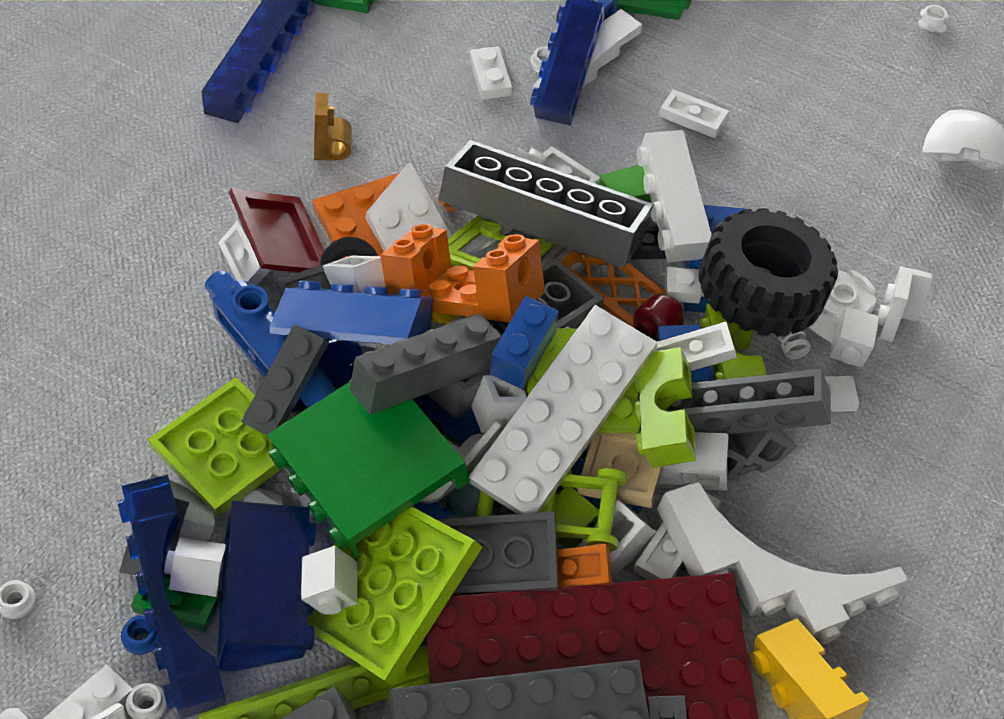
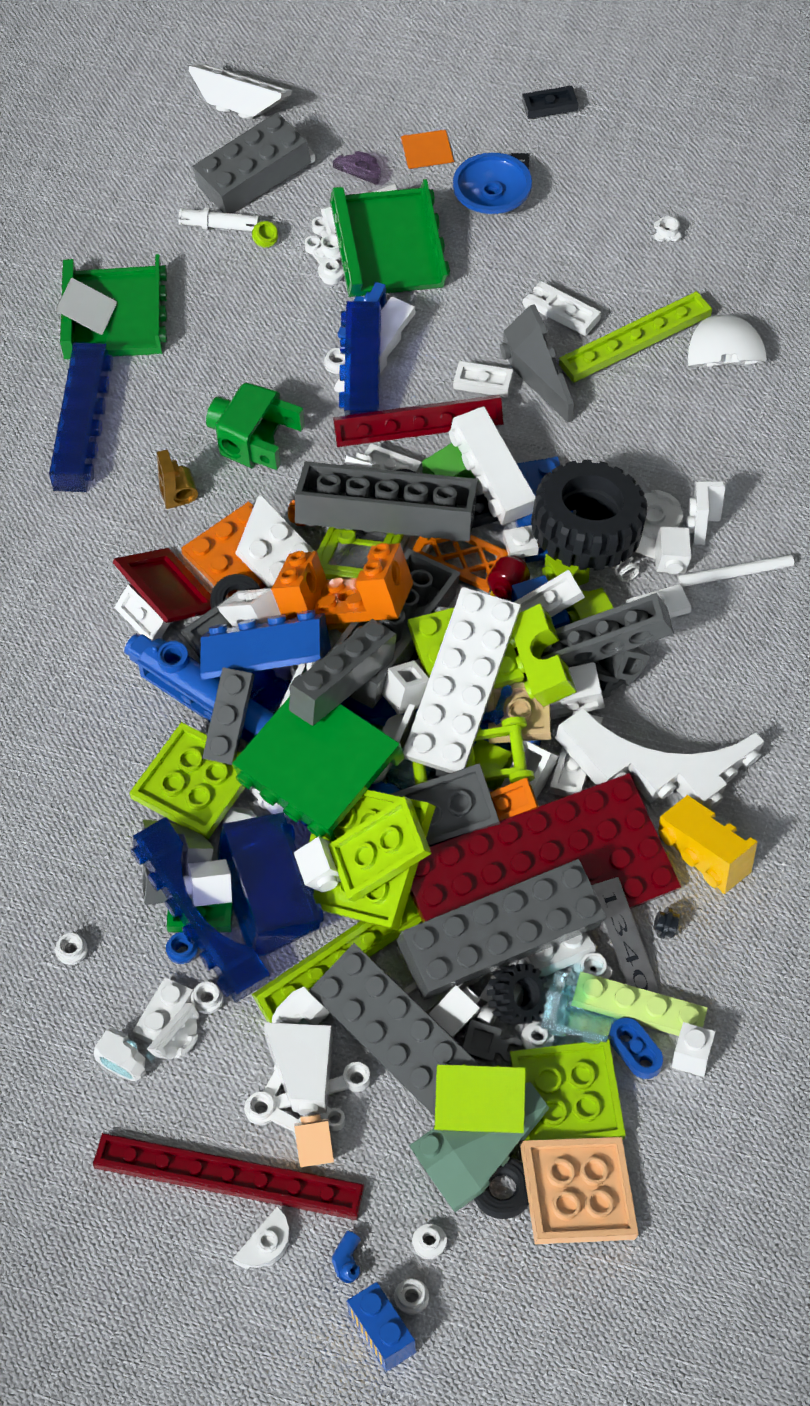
camera: 10 degrees left, 5 degrees up
(400, 580) = (379, 849): none -> lime plate
(424, 103) = (249, 422): none -> green piece
(490, 73) = (292, 384): white plate -> none
(524, 342) = (414, 633): blue brick -> none
(592, 463) = (498, 713): none -> clear blue piece
(596, 134) = (410, 421): none -> dark red plate
(755, 108) = (535, 363): none -> dark grey wedge
(800, 66) = (563, 308): none -> white plate
(870, 111) = (634, 336): none -> lime plate
(922, 378) = (736, 570): none -> white bar

